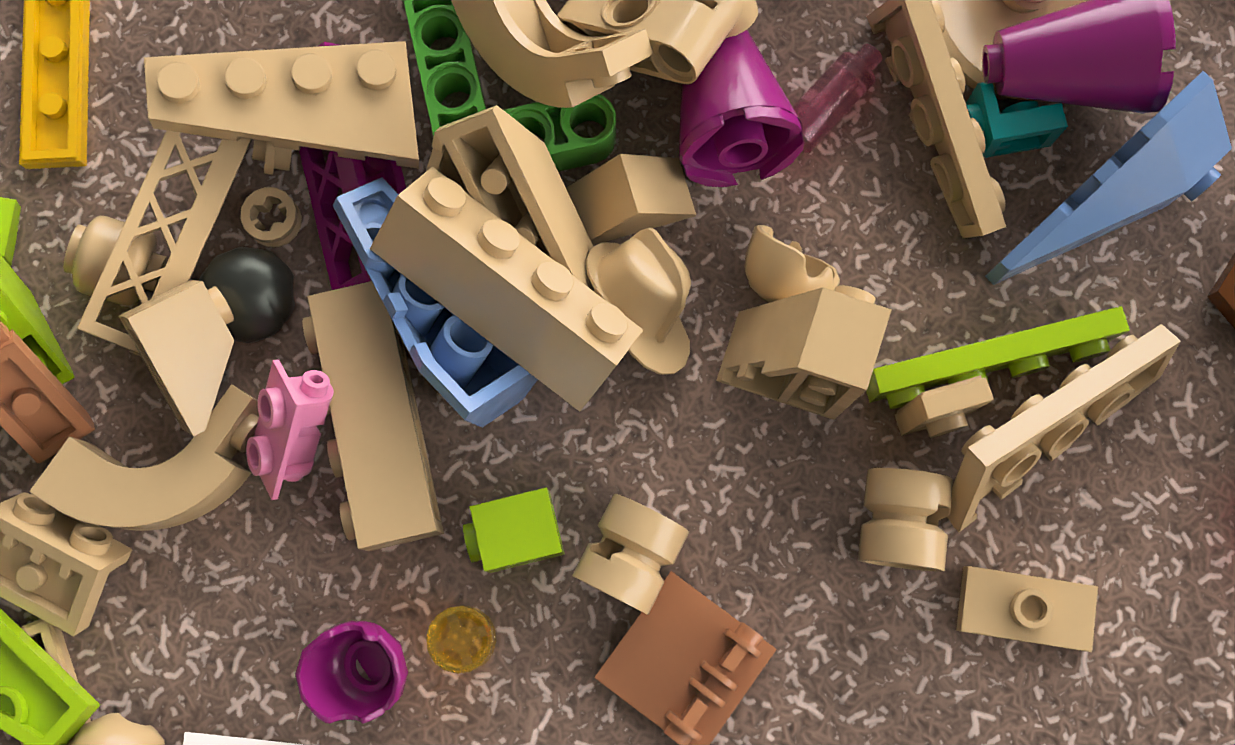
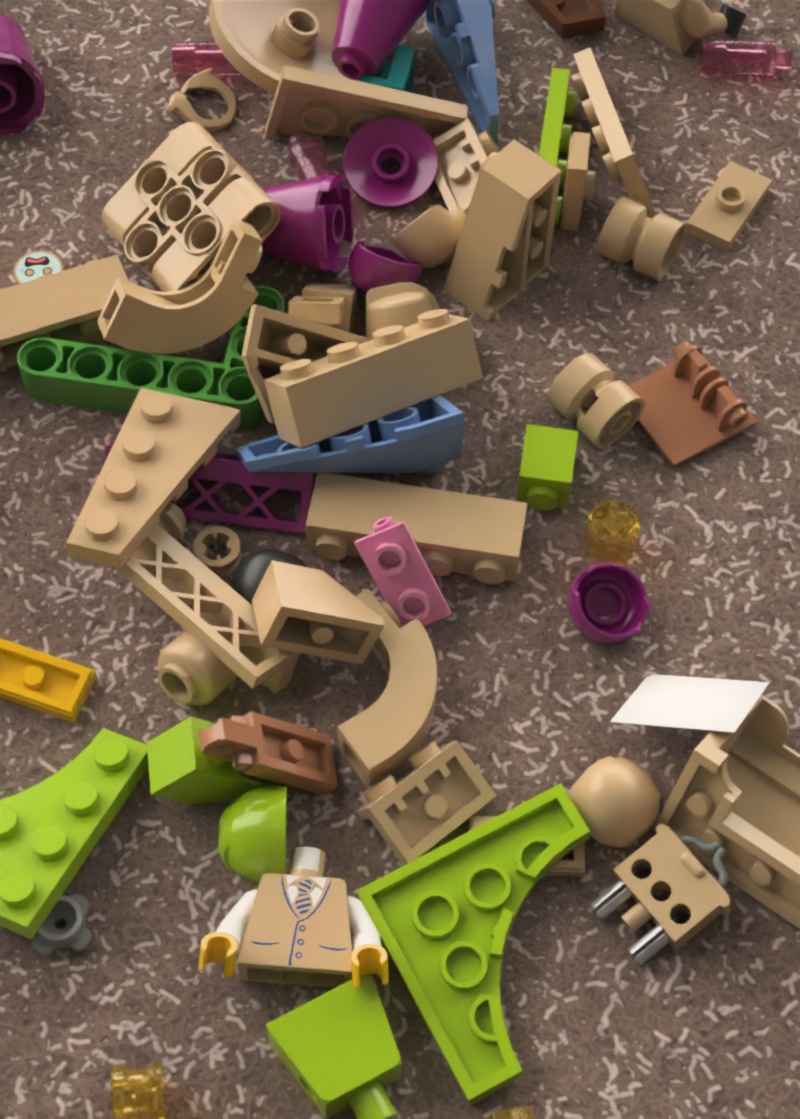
camera: 70 degrees left, 20 degrees down
(590, 182) = (318, 309): none -> tan plate
(705, 218) = (380, 267): none -> magenta hair
(879, 143) = (386, 142): none -> magenta dish
(921, 270) = (459, 161): none -> tan bracket

